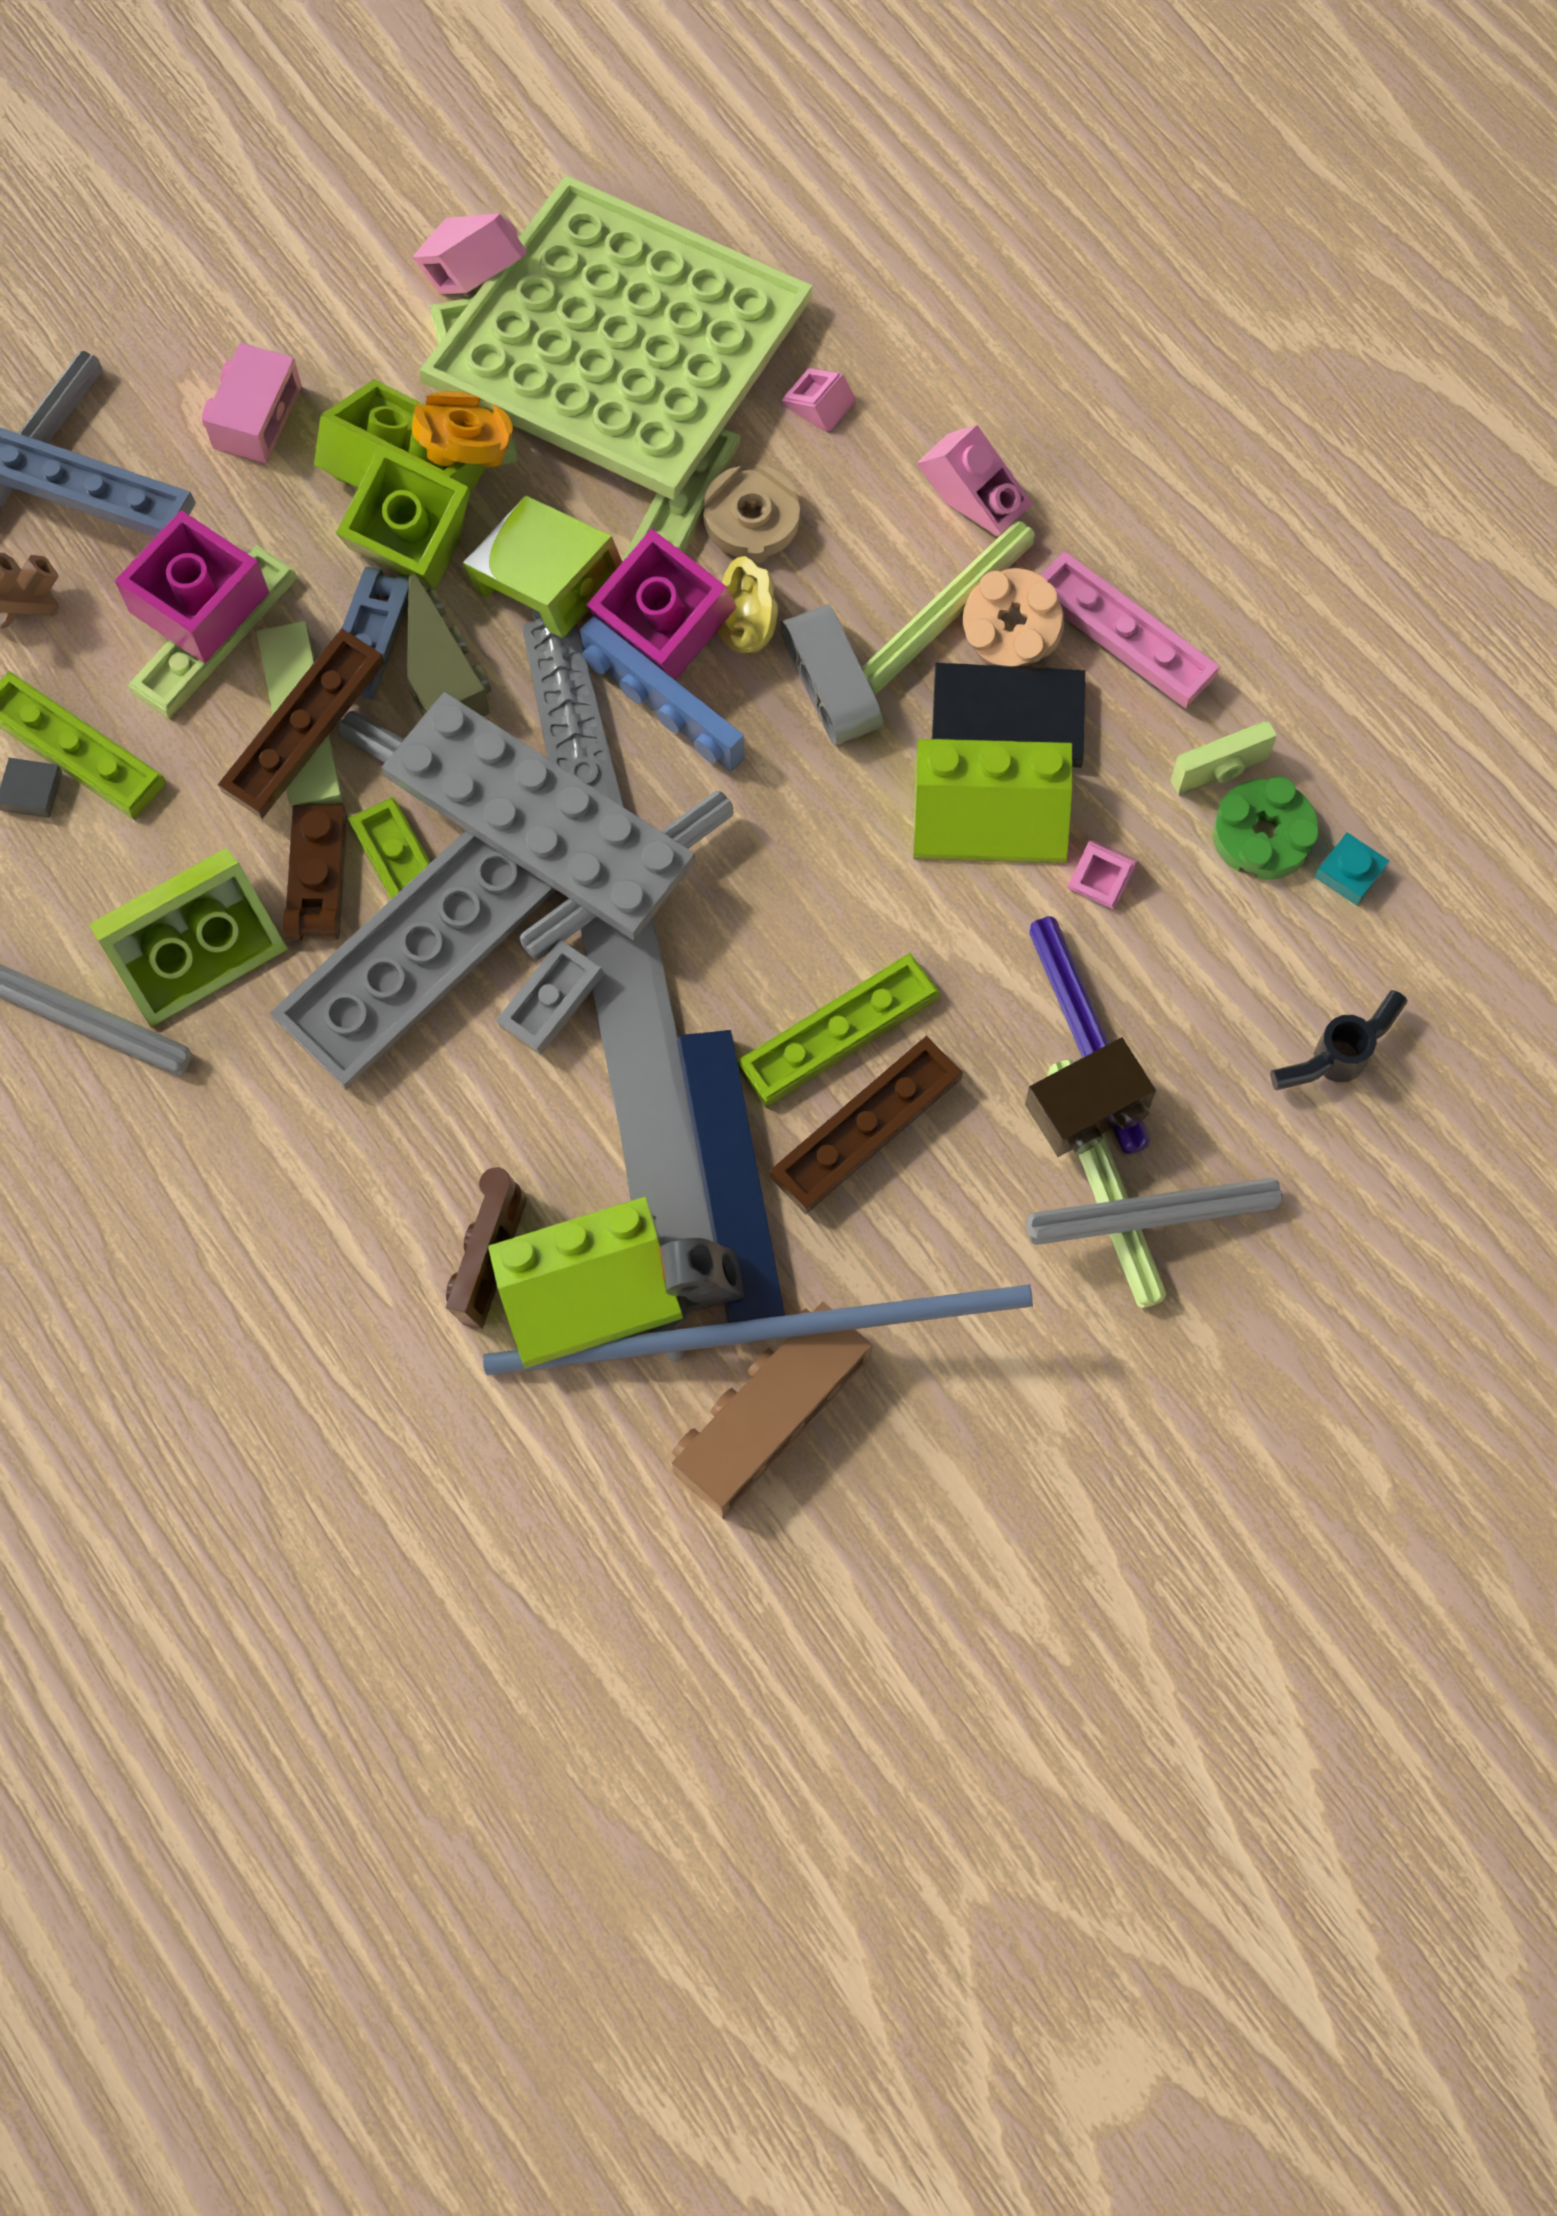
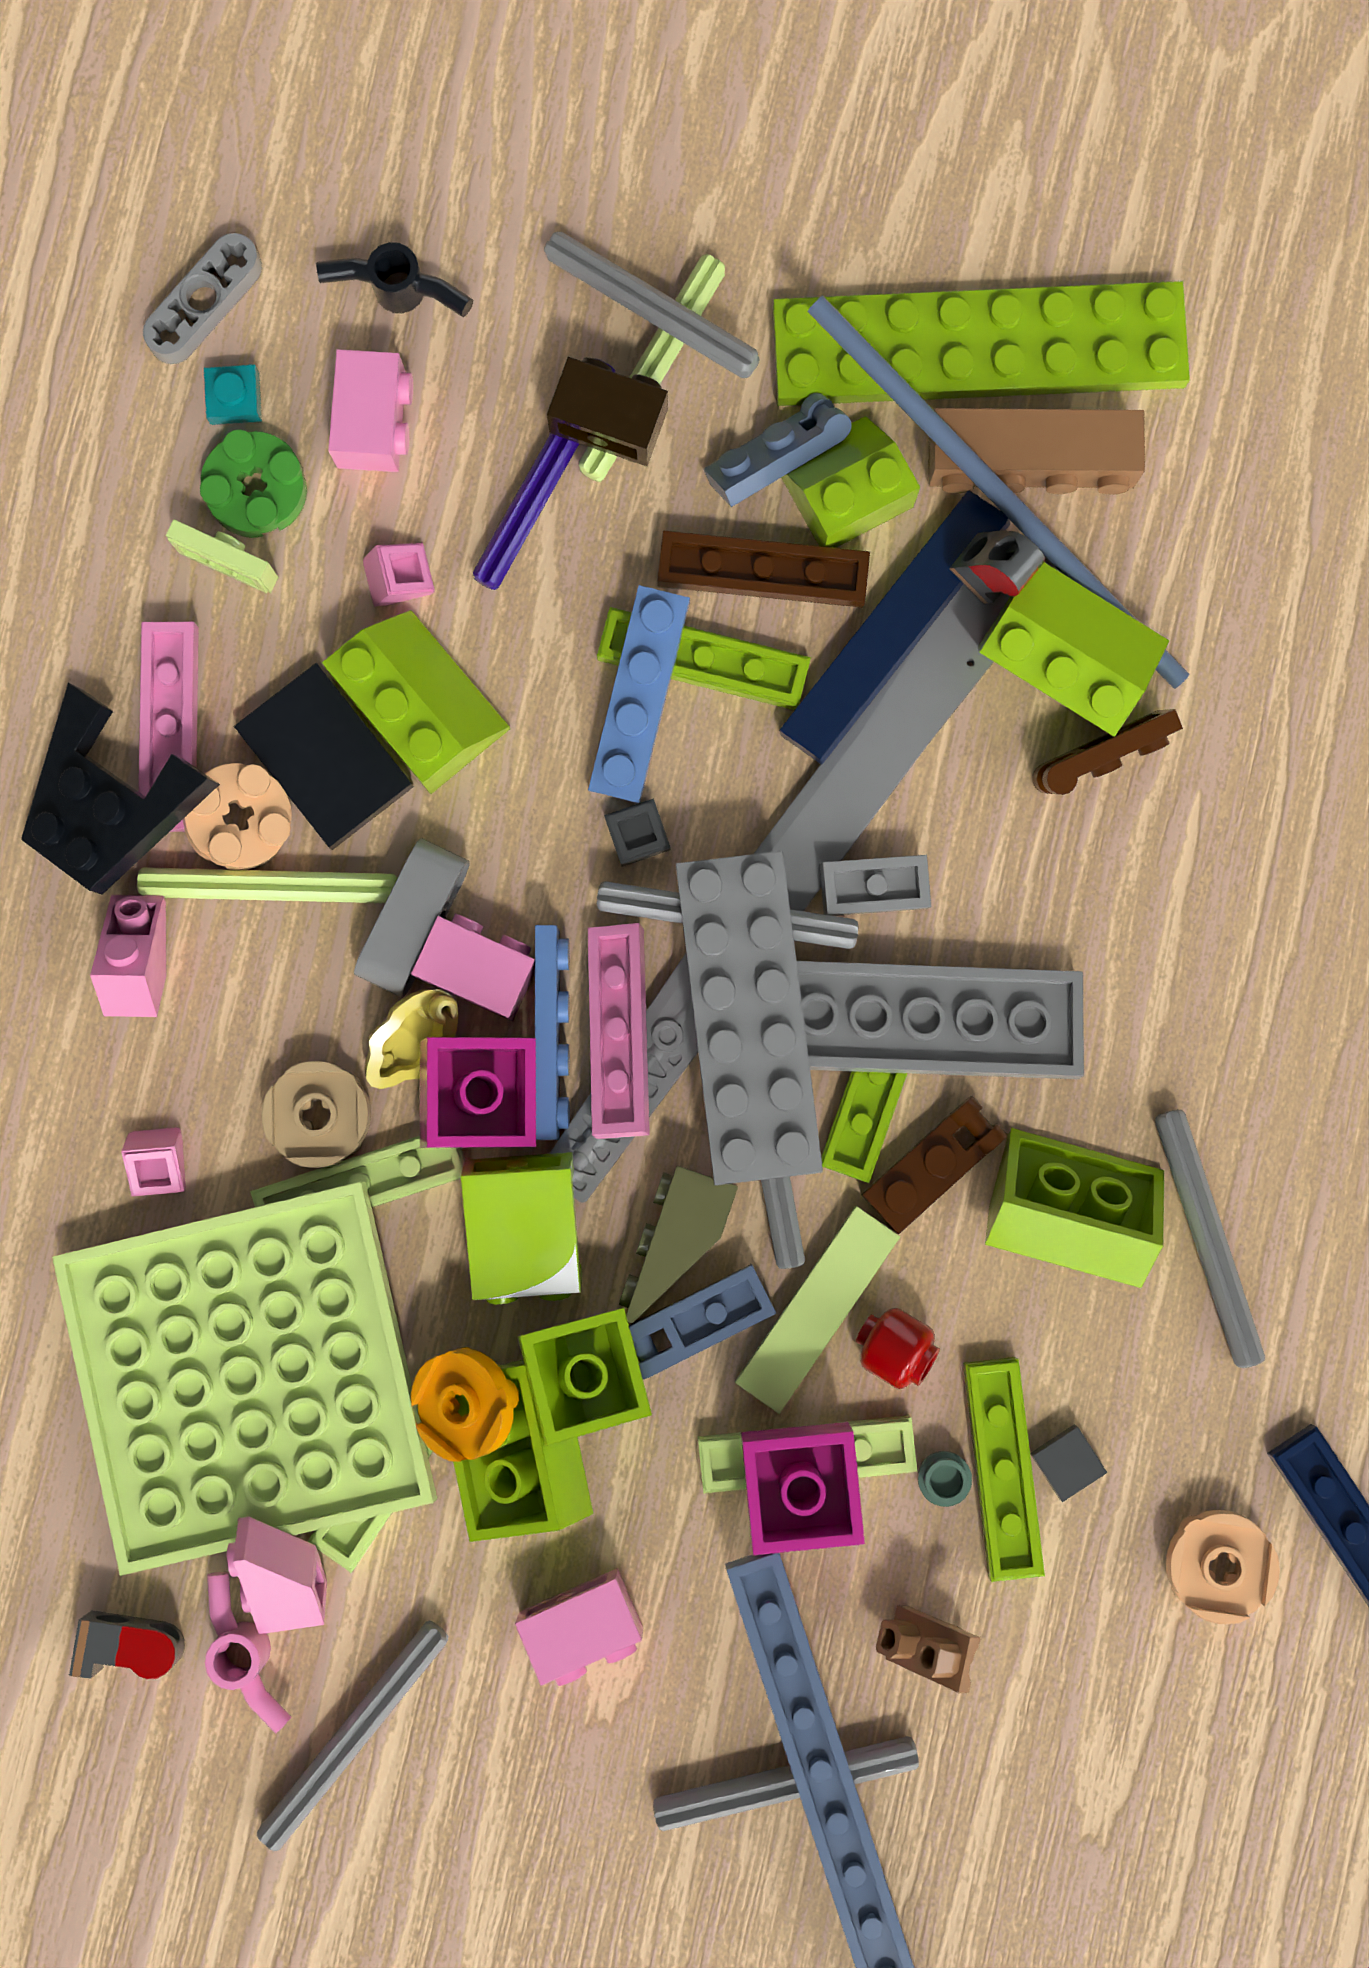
camera: 130 degrees left, 15 degrees up
(104, 699) = (944, 1478): none -> sand green plate
(216, 735) = (897, 1348): none -> red head
(301, 723) = (833, 1284): reddish brown plate -> none
(329, 234) = (352, 1736): none -> light grey axle
(441, 194) = (227, 1674): none -> bright pink piece
(520, 149) = (127, 1642): none -> leg
(617, 734) = (618, 1031): none -> bright pink plate
(750, 876) = (637, 832): none -> dark grey tile
(756, 682) = (475, 966): none -> bright pink brick
(851, 954) = (639, 694): none -> medium blue plate
(878, 1241) = (853, 486): none -> lime slope
(894, 1463) = (990, 342): none -> lime plate
(950, 1212) = (779, 450): none -> sand blue plate
(1107, 526) = (91, 818): none -> black wing
(1250, 944) = (369, 411): none -> bright pink brick
(1444, 928) = (201, 276): none -> light grey beam

